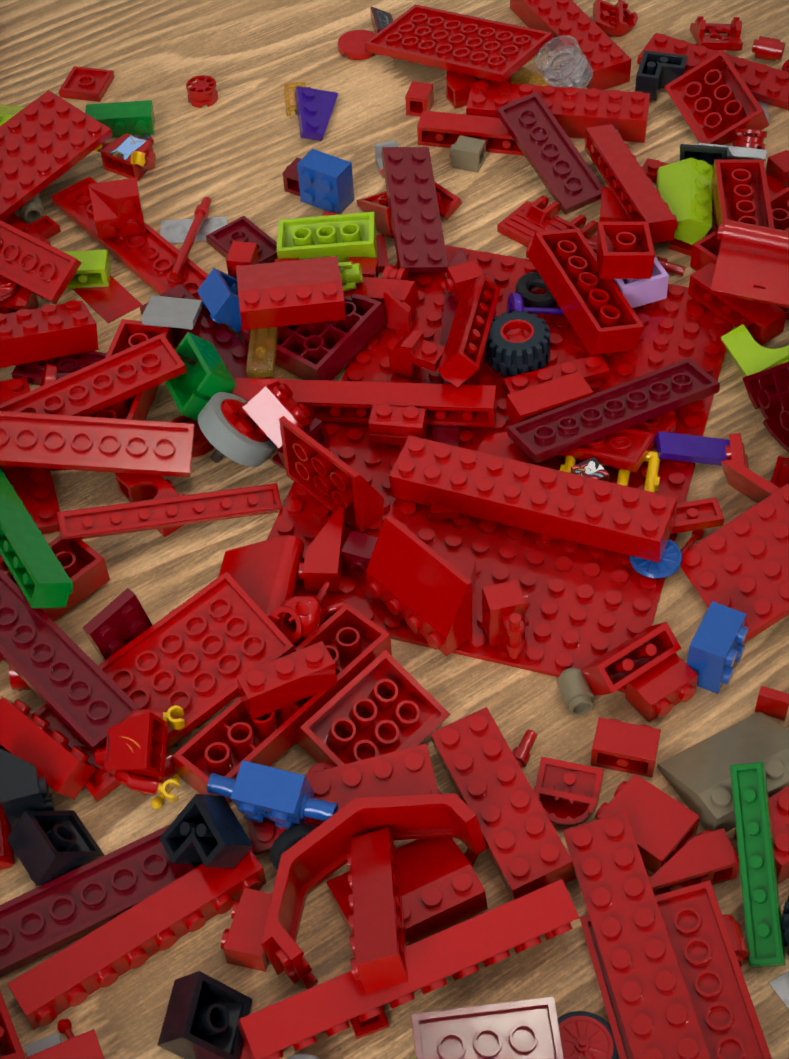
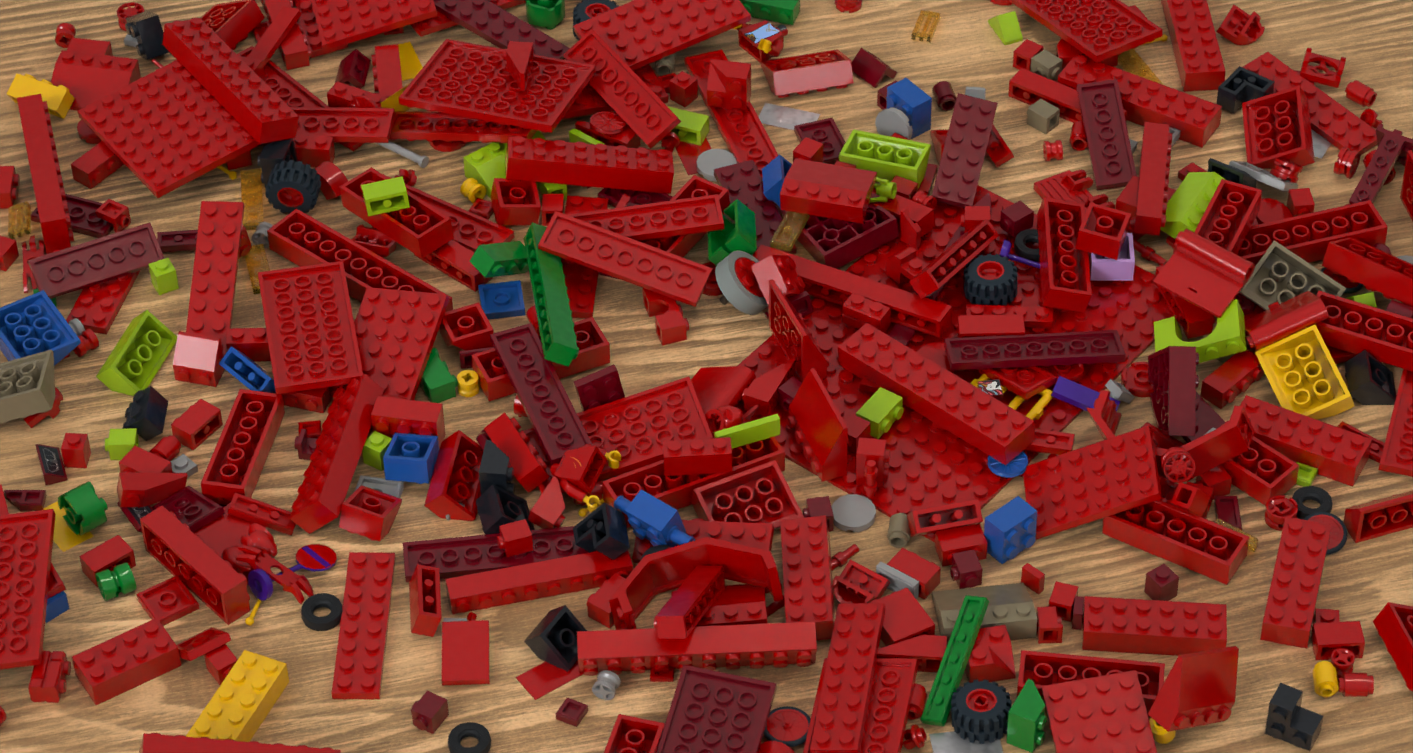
camera: 20 degrees right, 5 degrees down
(64, 229) = (683, 89): none -> red brick
(73, 290) = (670, 141): none -> red plate
(84, 882) = (515, 538): none -> red brick
(113, 816) = (549, 507): none -> red slope
(130, 299) = (712, 160): none -> light grey tile
(168, 512) = (670, 326): red tile -> none
(172, 312) = (734, 180): light grey tile -> none
(195, 176) = (808, 72): none -> slope
(200, 215) = (798, 106): red bar -> none
(260, 154) = (871, 68): none -> dark red panel
(314, 111) = (934, 42): dark purple wing -> none
(317, 199) = (892, 121): none -> light grey tile
(339, 621) = (751, 431): none -> lime tile
(359, 161) = (944, 95): none -> dark red brick
(381, 77) = (1006, 27): none -> lime slope
(445, 101) = (1046, 65): none -> dark tan brick
(464, 698) = (820, 506): none -> dark red brick
(476, 540) = (881, 411): none -> lime brick
(499, 185) = (1053, 150): none -> red wheel
(504, 686) = (853, 512): none -> light grey tile
(507, 266) = (1016, 218): none -> dark red brick
(517, 163) = (1078, 137): none -> red brick
(564, 63) = (1159, 60): clear wheel -> none
(615, 766) = (898, 579): none -> light grey tile
(687, 718) = (966, 569): none -> dark red brick
(725, 428) = (1119, 391): none -> light grey plate
(736, 409) = (1136, 379): none -> red tile
(763, 997) = (915, 737): none -> red plate

